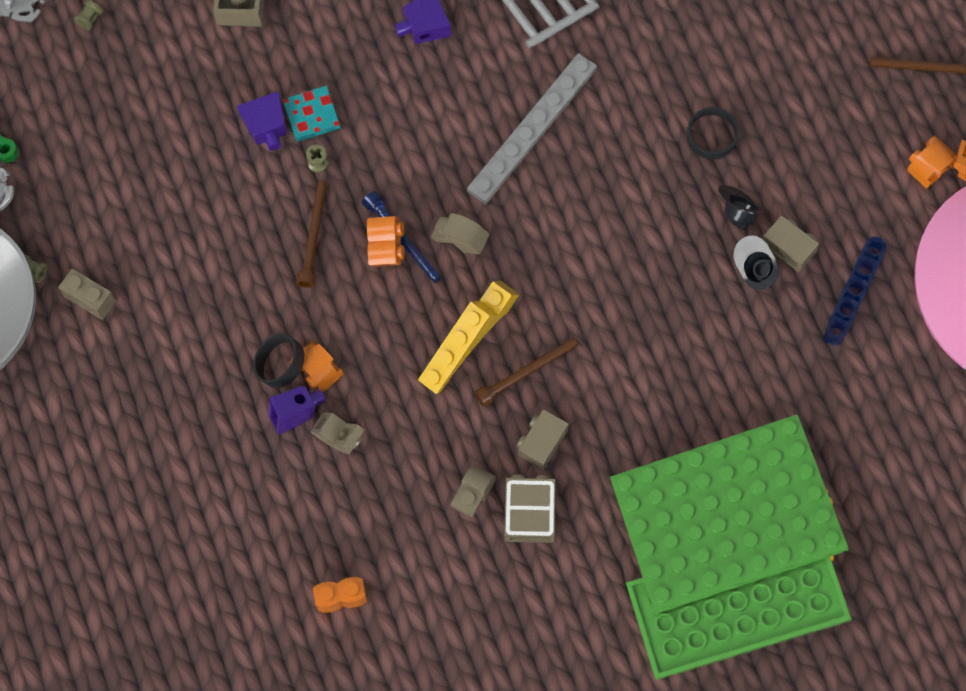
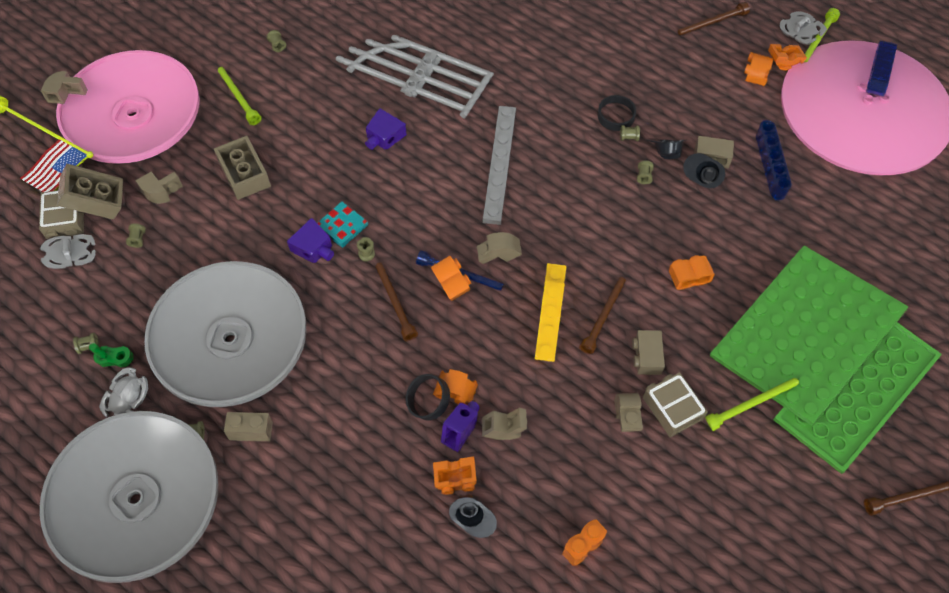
camera: 35 degrees left, 10 degrees down
(107, 143) = (206, 306): none -> light grey dish
(248, 505) = (473, 516): none -> black piece
(256, 456) = (455, 475): none -> orange cylinder
(560, 550) = (716, 420): none -> lime piece
(655, 375) = (691, 272): none -> orange brick
(690, 227) = (645, 171): none -> olive bush
(707, 168) = (630, 133): none -> olive bush

